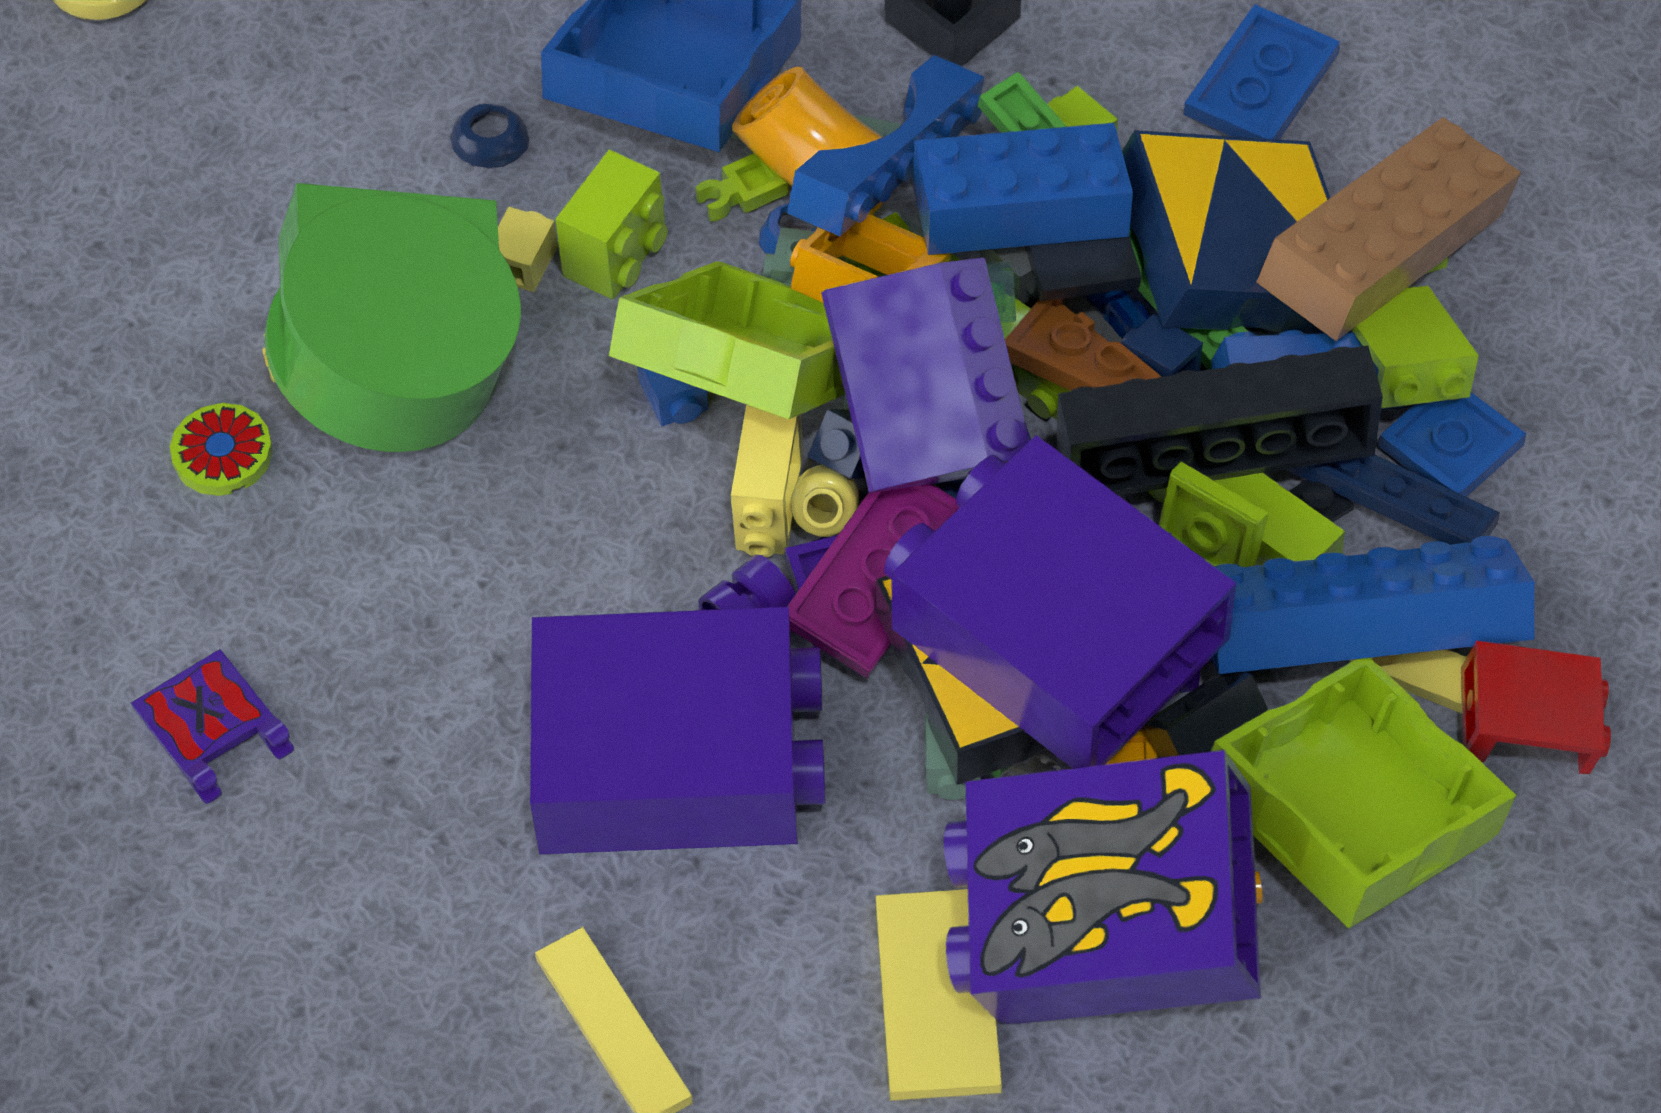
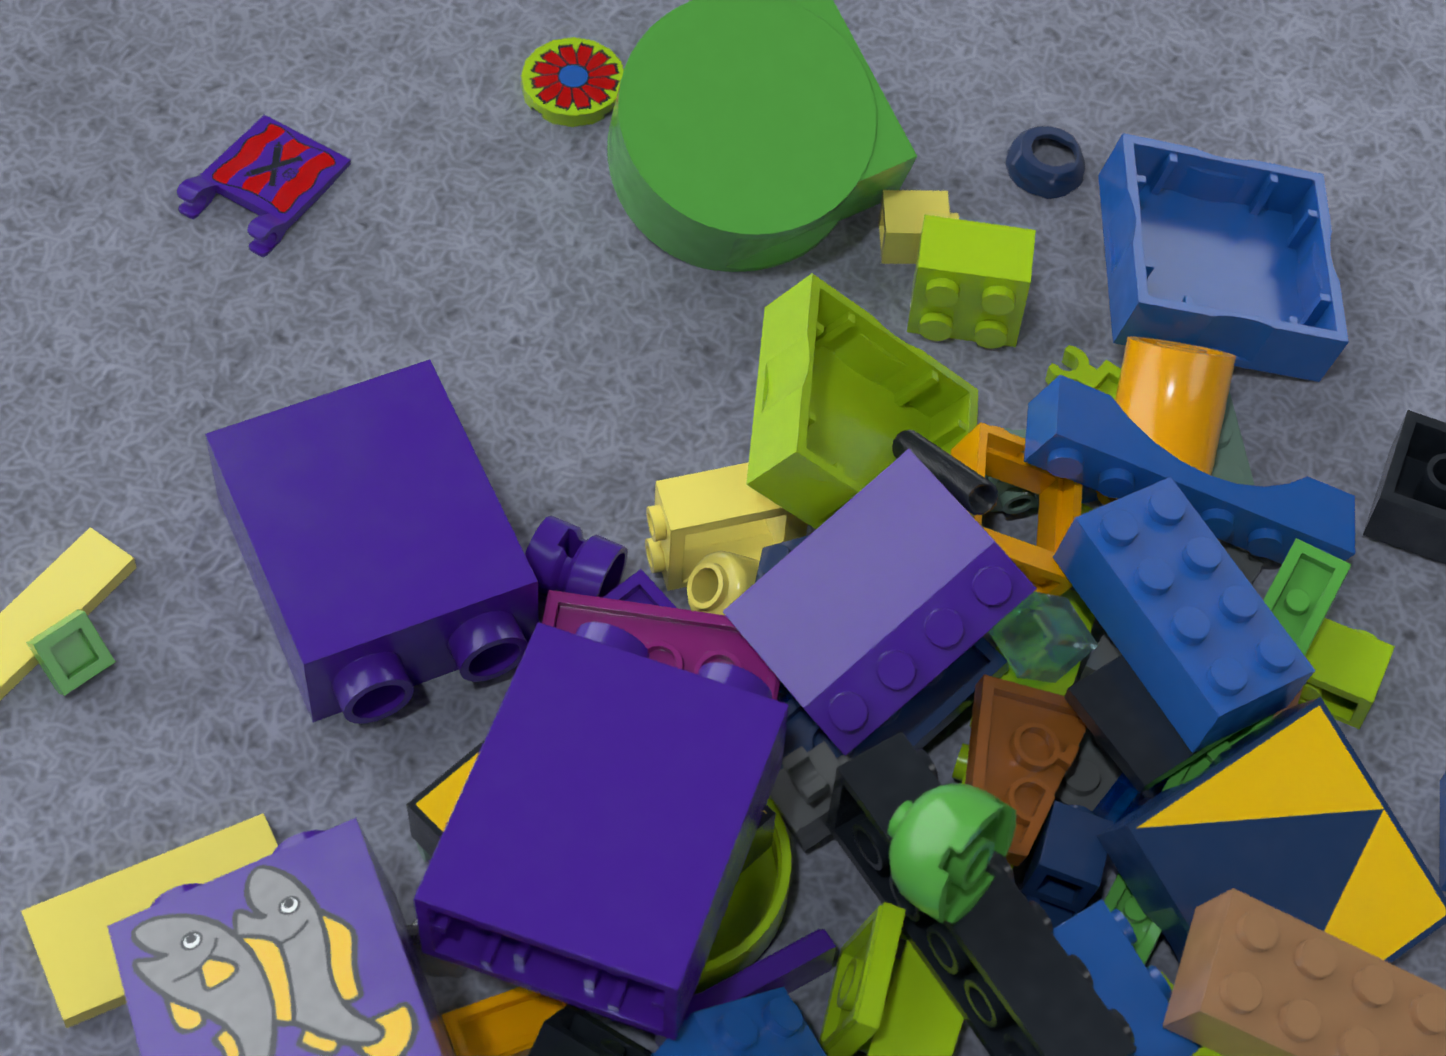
camera: 60 degrees right, 0 degrees up
(659, 995) = (71, 652): none -> bright green plate
(814, 286) = (966, 485): none -> black piece
(1185, 385) = (945, 847): none -> bright green cylinder

